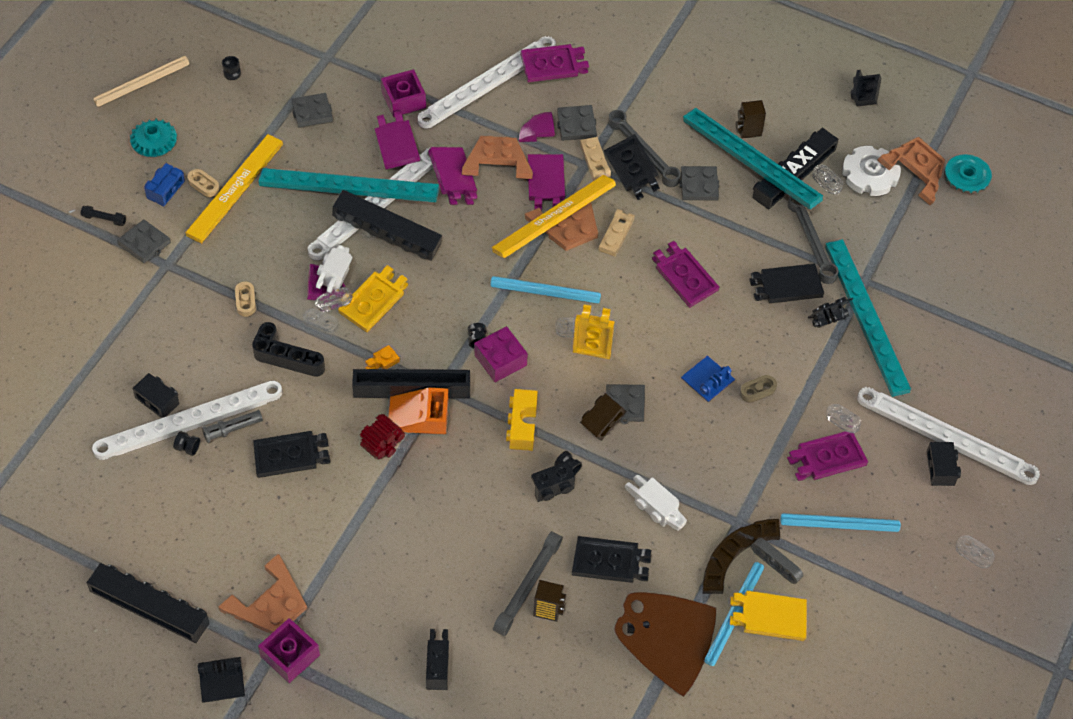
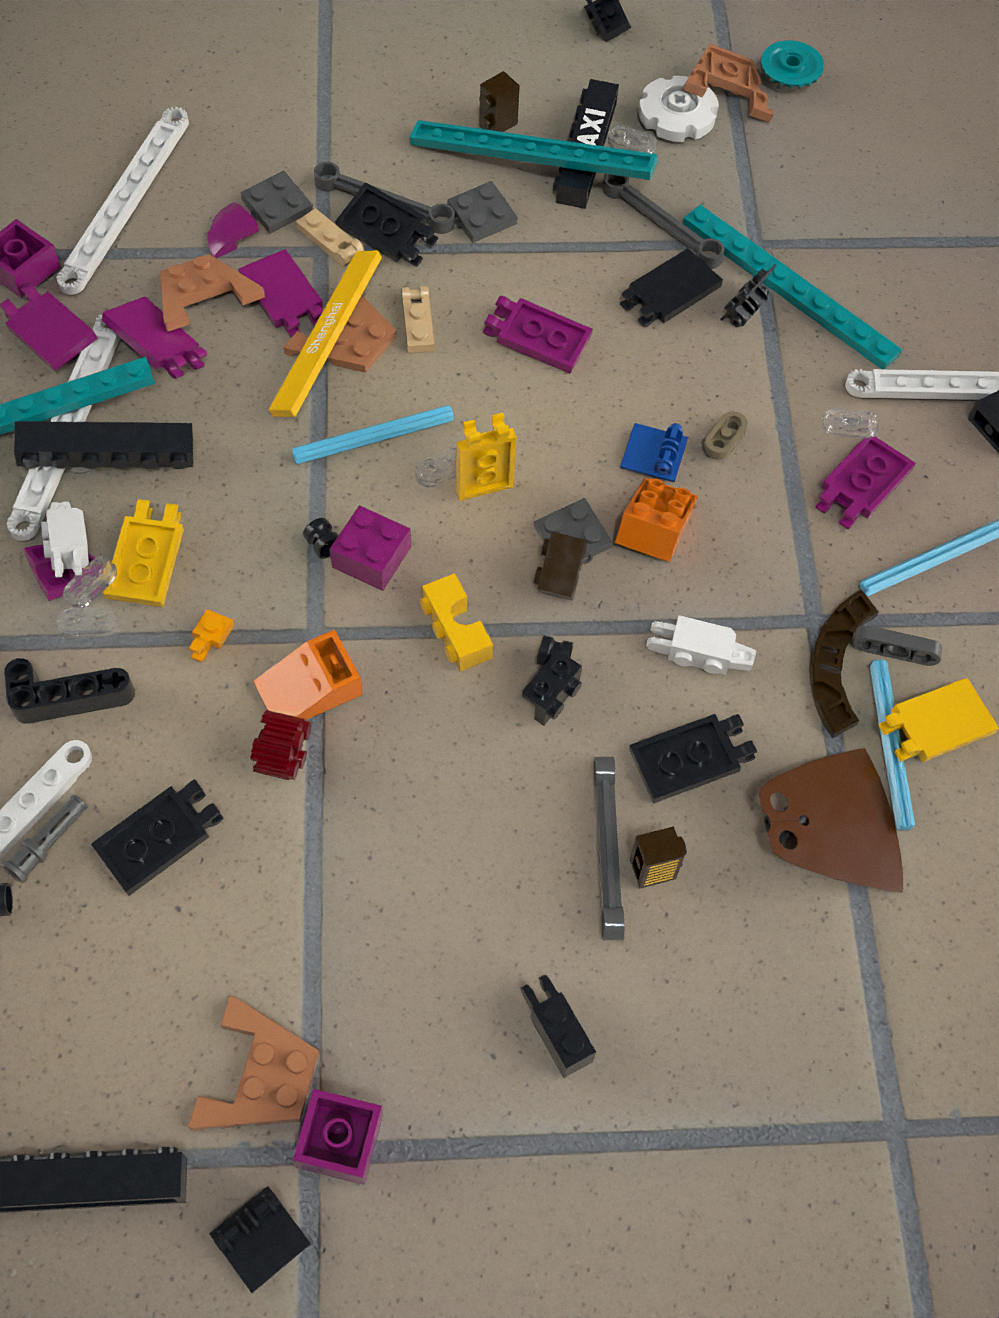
camera: 30 degrees left, 5 degrees up
(393, 382) = (255, 654): black brick -> none
(553, 62) = (199, 137): magenta tile -> none
(680, 417) = (656, 519): none -> orange slope

